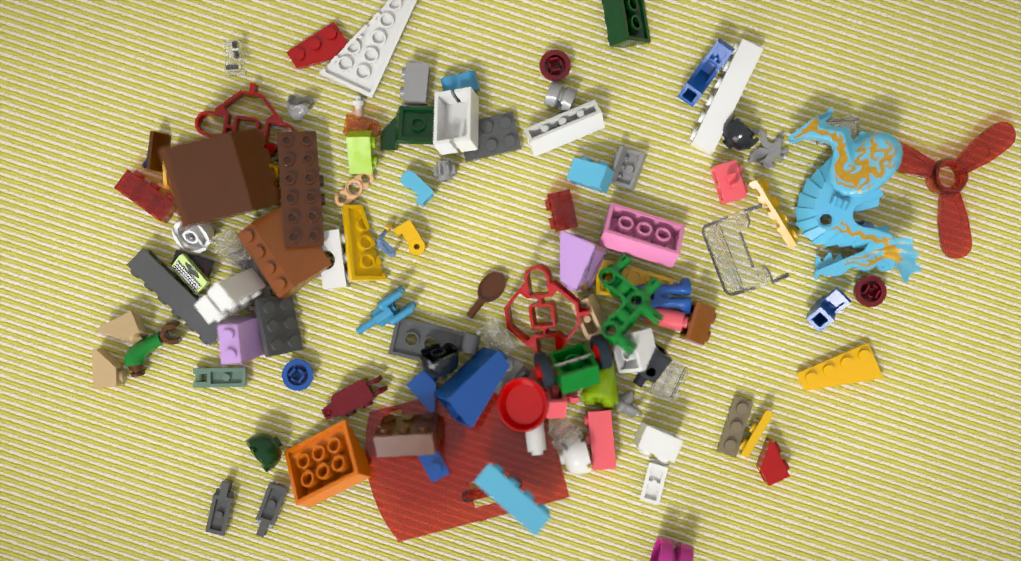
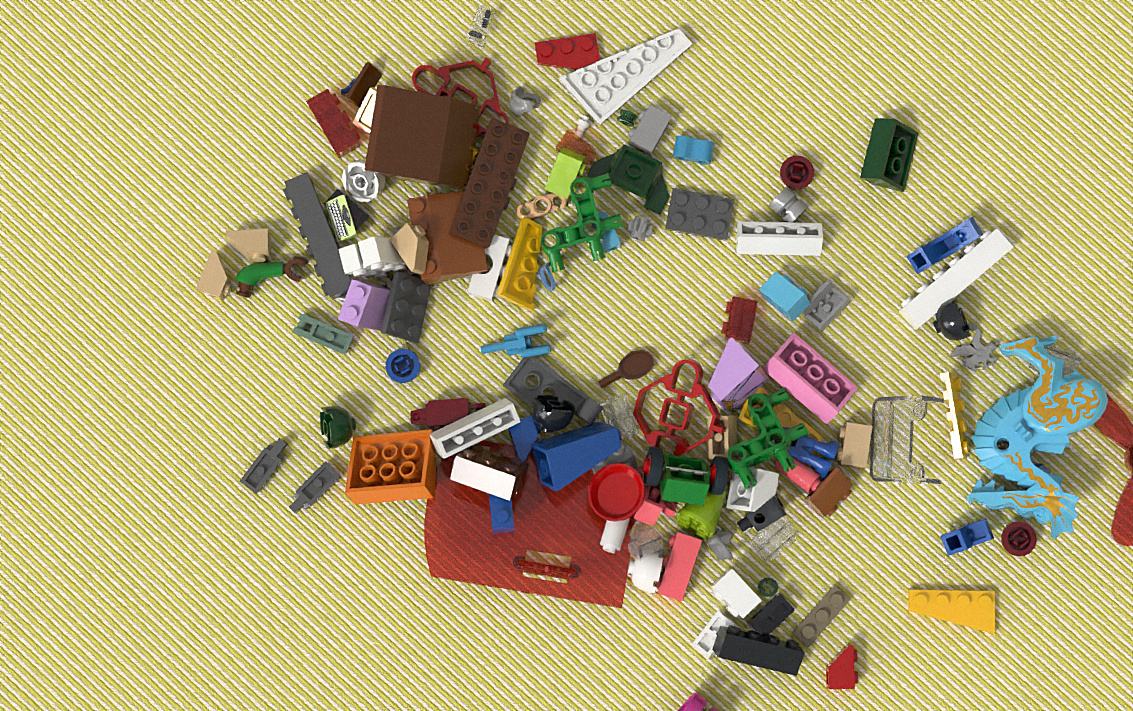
camera: 25 degrees right, 5 degrees down
(230, 248) = (392, 209): clear slope -> none
(257, 274) = (412, 247): none -> tan slope
(380, 403) = (474, 428): none -> white brick
(392, 82) = (627, 118): none -> clear green bush
(392, 199) = (587, 214): none -> green pin
(416, 243) = (579, 286): yellow leg -> none
(456, 121) = (673, 184): white piece -> none
(514, 500) = (565, 579): medium azure brick -> none
(677, 426) = (762, 590): none -> clear green bush
(693, 445) = (771, 615): none -> black hinge
(697, 481) = (758, 650): none -> black brick
(701, 273) = (854, 445): none -> tan brick
(729, 182) = (922, 365): coral brick -> none
(756, 431) = (840, 630): yellow hinge -> none

